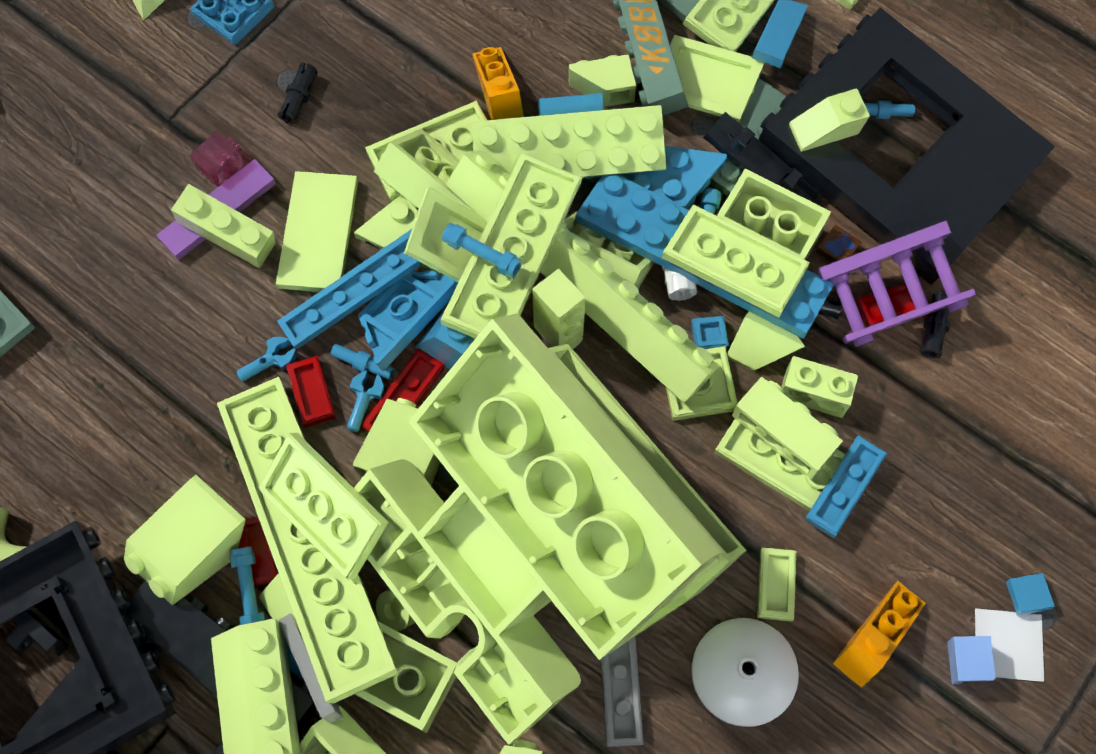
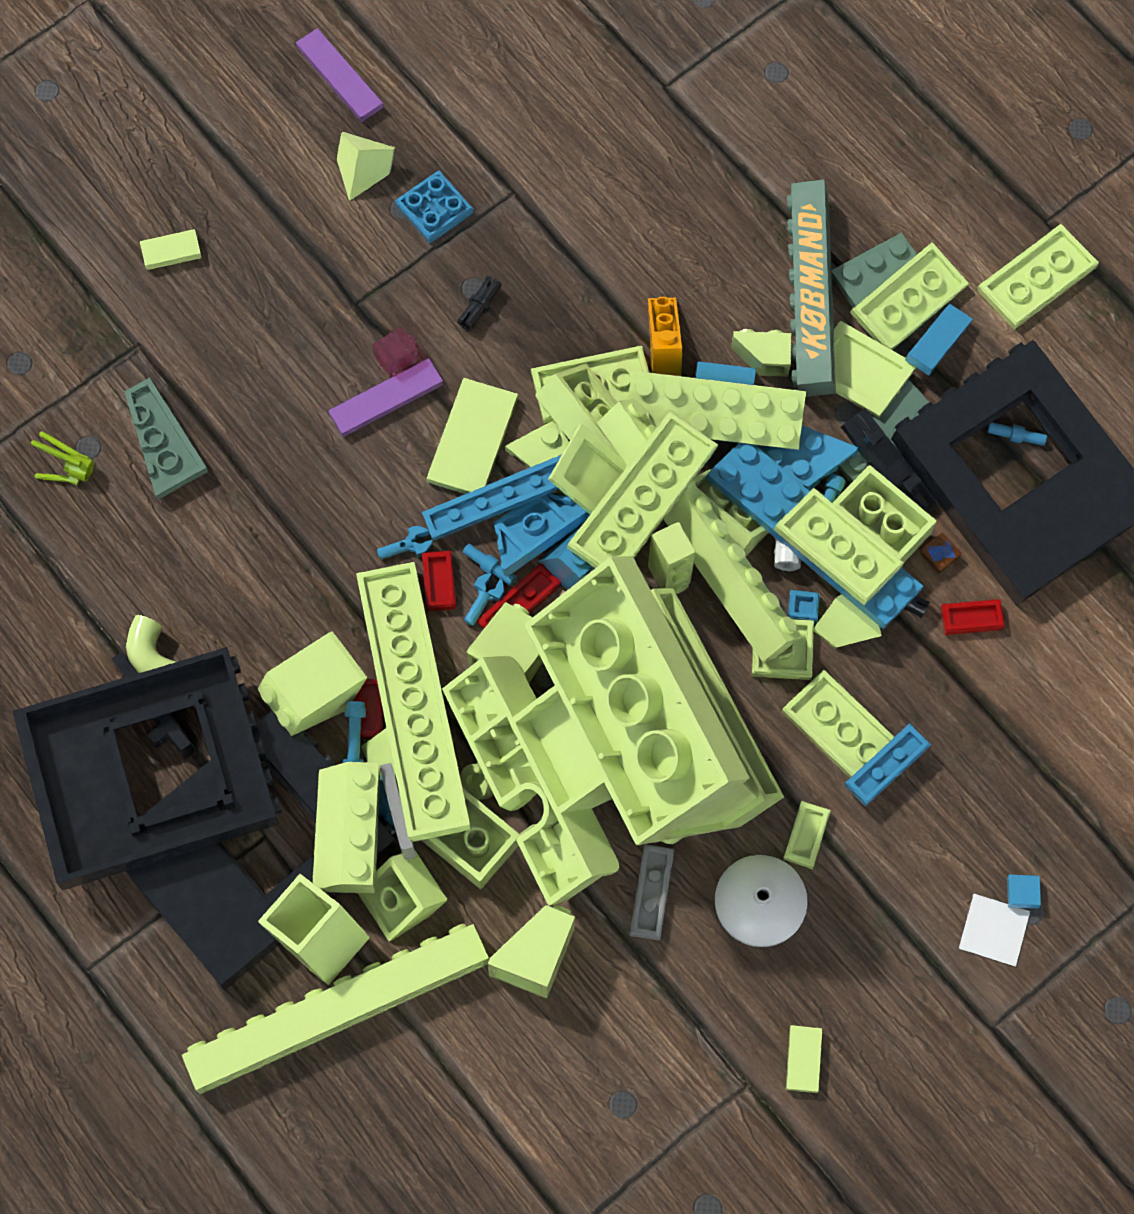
camera: 10 degrees right, 0 degrees up
(223, 226) = (391, 416): yellowish green brick -> none
(323, 505) = (435, 679): yellowish green tile -> none
(506, 263) = (596, 476): dark azure bar -> none
(787, 427) = (848, 702): yellowish green brick -> none
(819, 386) = (885, 674): yellowish green brick -> none
(830, 120) = (955, 438): yellowish green slope -> none
(879, 634) = (883, 894): light orange slope -> none
(900, 251) = (988, 570): medium lavender fence -> none
(935, 328) = (1009, 642): black pin -> none
(971, 659) = (955, 930): light blue panel -> none

